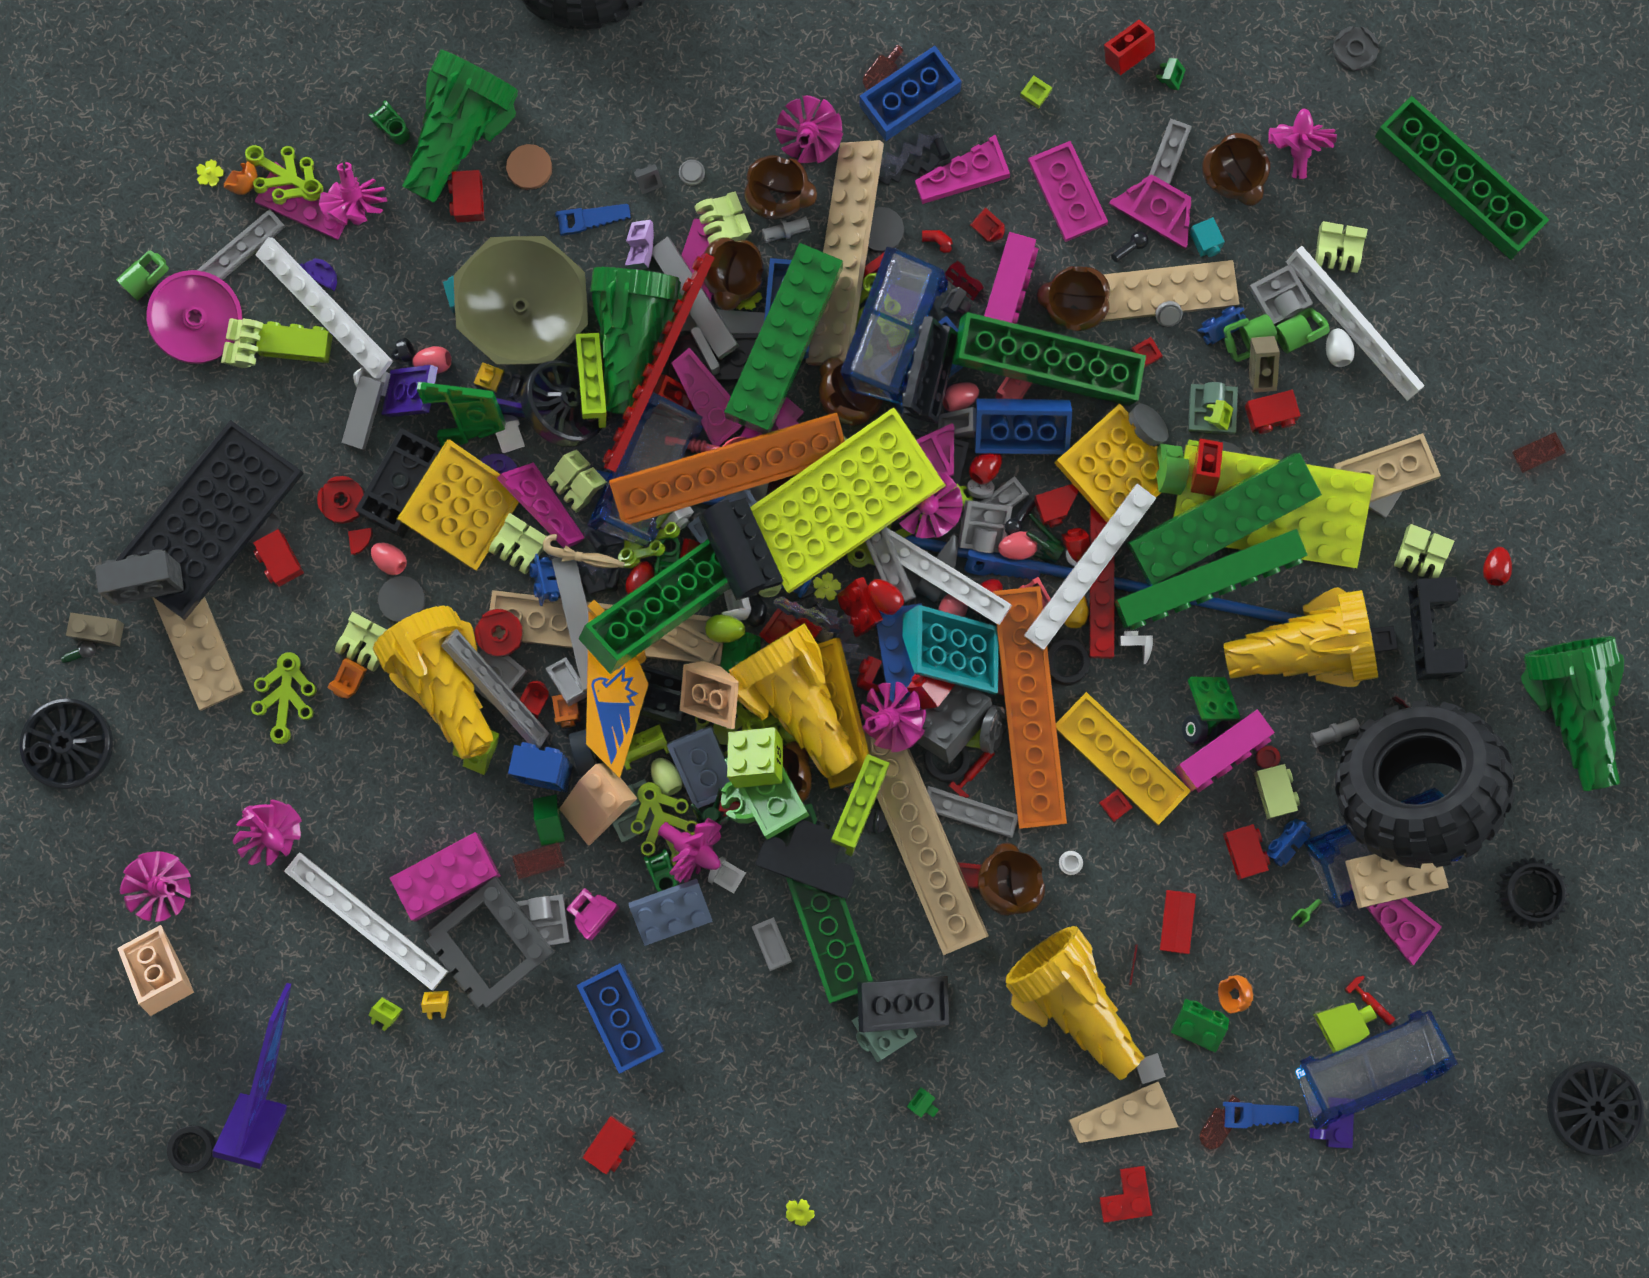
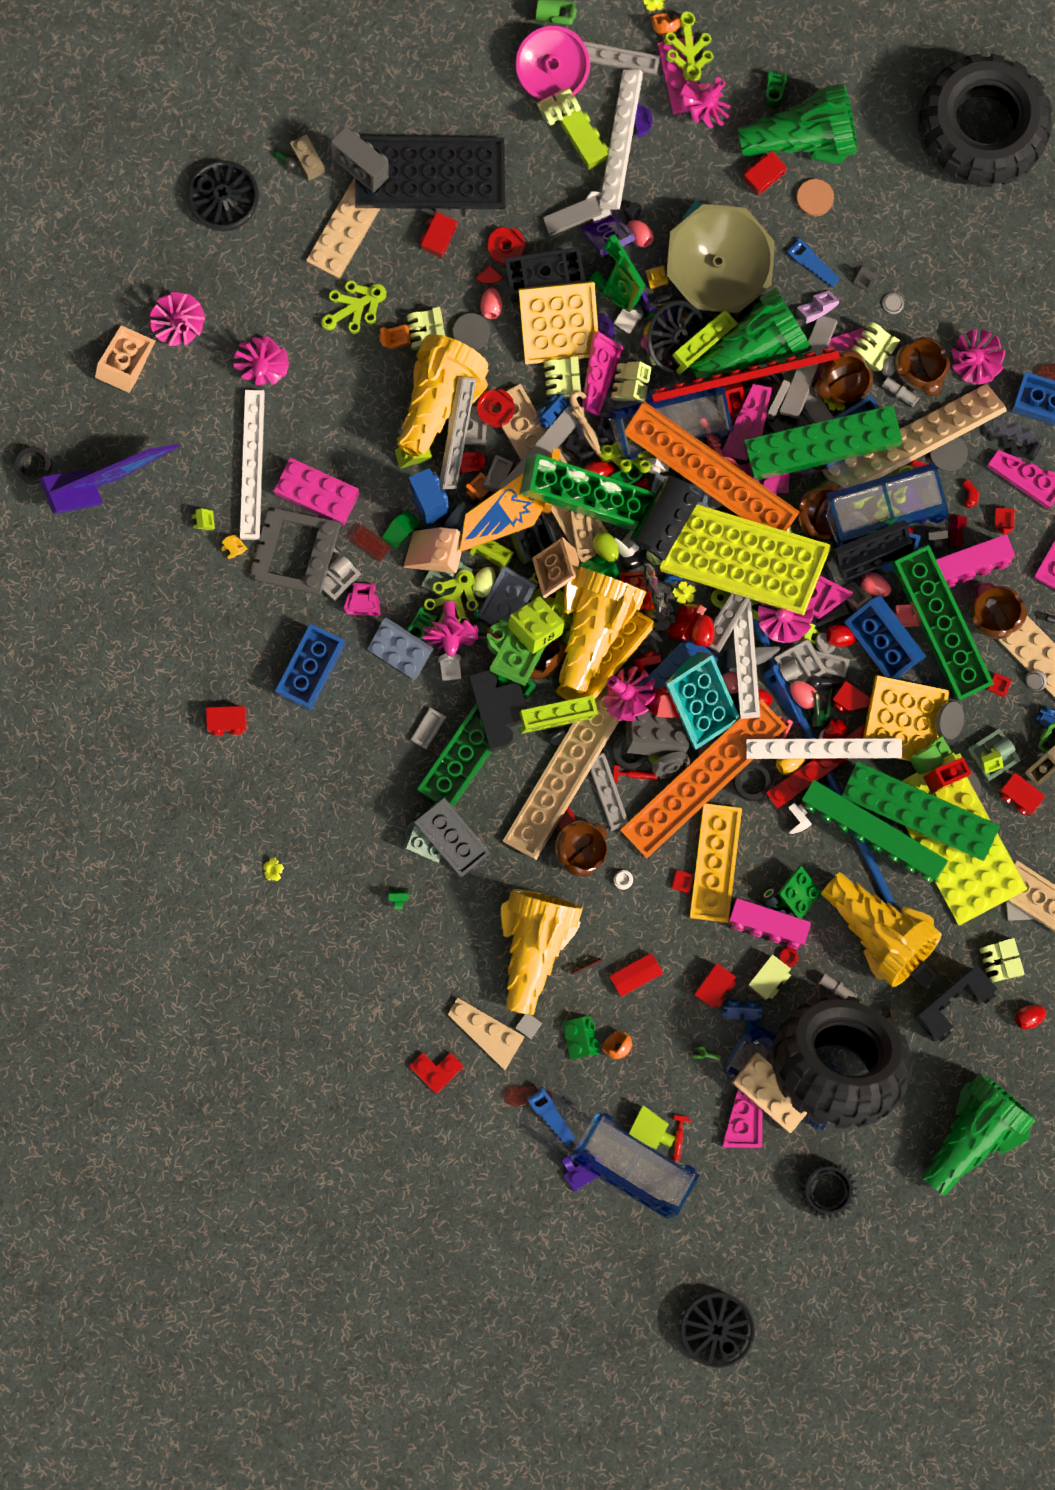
camera: 50 degrees right, 0 degrees up
(753, 220) = (889, 366): none -> light grey piece

